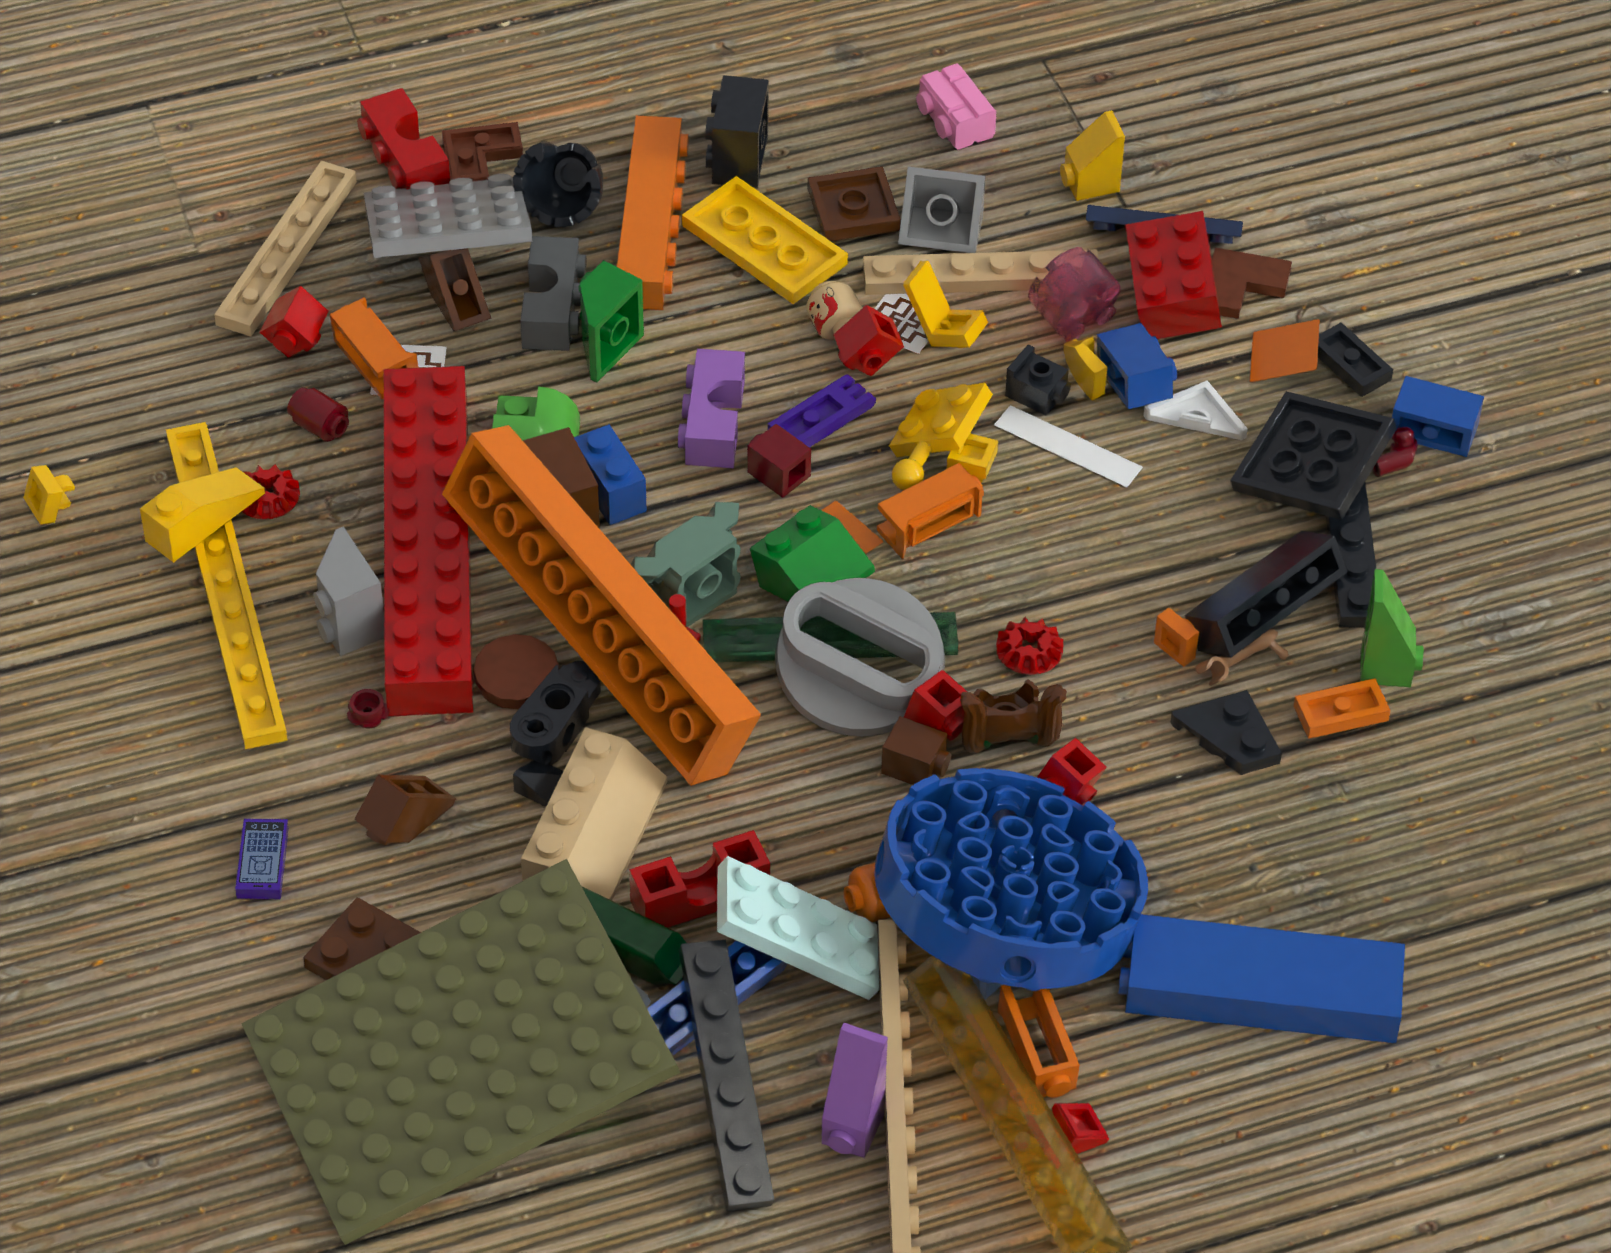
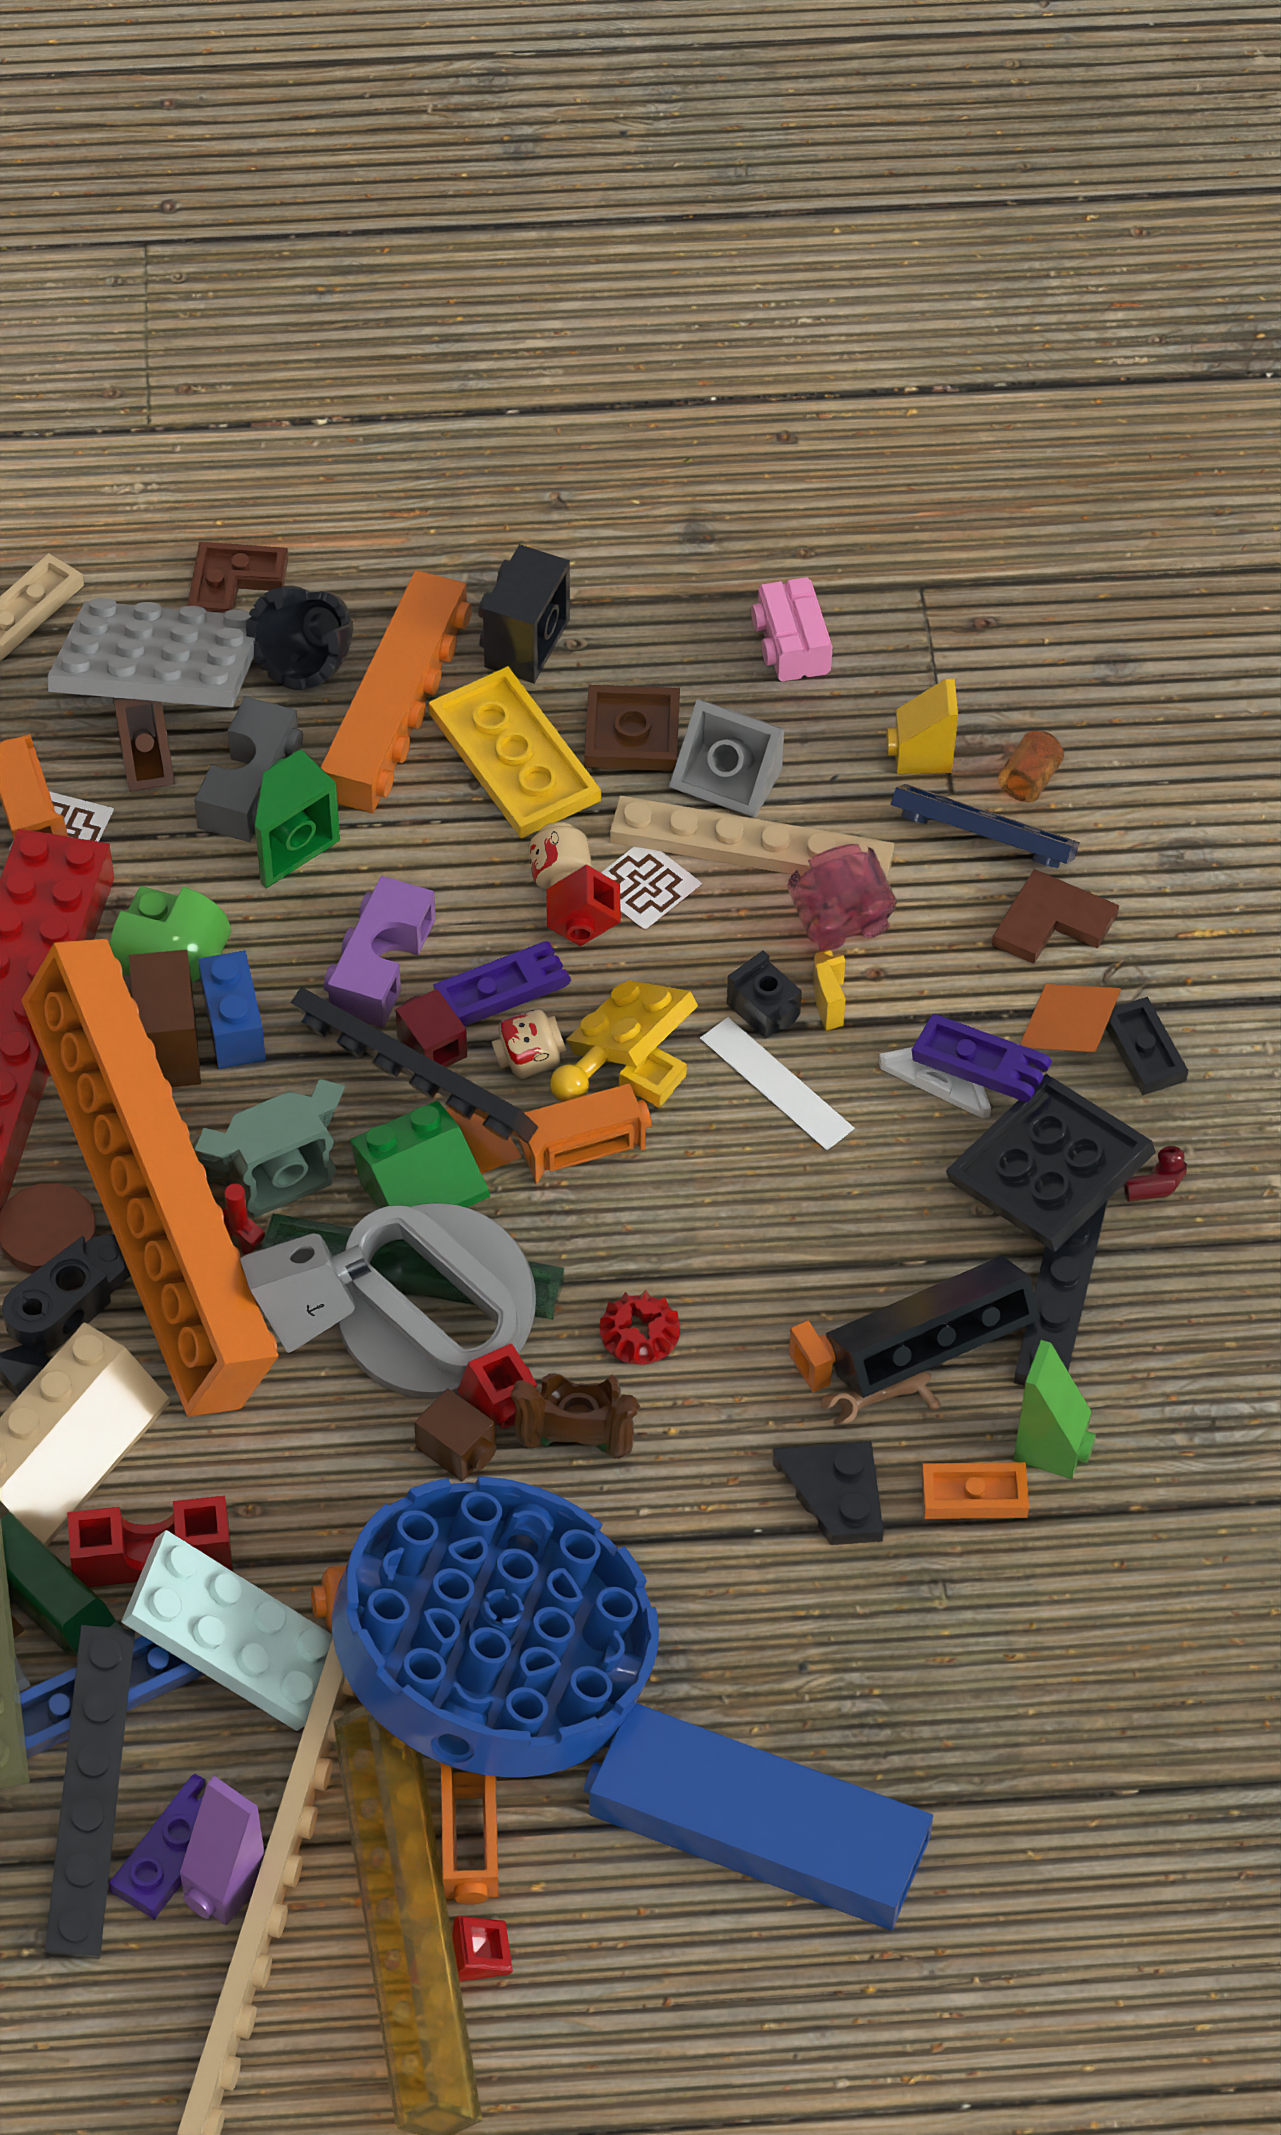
camera: 15 degrees right, 5 degrees up
(393, 130) = (144, 524): red arch -> none
(761, 658) = (303, 1286): none -> light grey torso
(790, 486) = (425, 1074): none -> black plate
(798, 1111) = (154, 1867): none -> dark purple hinge
(863, 452) = (529, 1043): none -> tan head
(940, 323) = (674, 888): yellow bracket -> none
(1074, 770) = (622, 1505): red brick -> none
(1136, 365) = (884, 1001): blue brick -> none
(1173, 275) = (967, 897): red brick -> none
(1184, 172) = (1031, 766): none -> clear orange brick
(1230, 390) = (980, 1058): none -> dark purple hinge
(1438, 415) = (1221, 1140): blue brick -> none

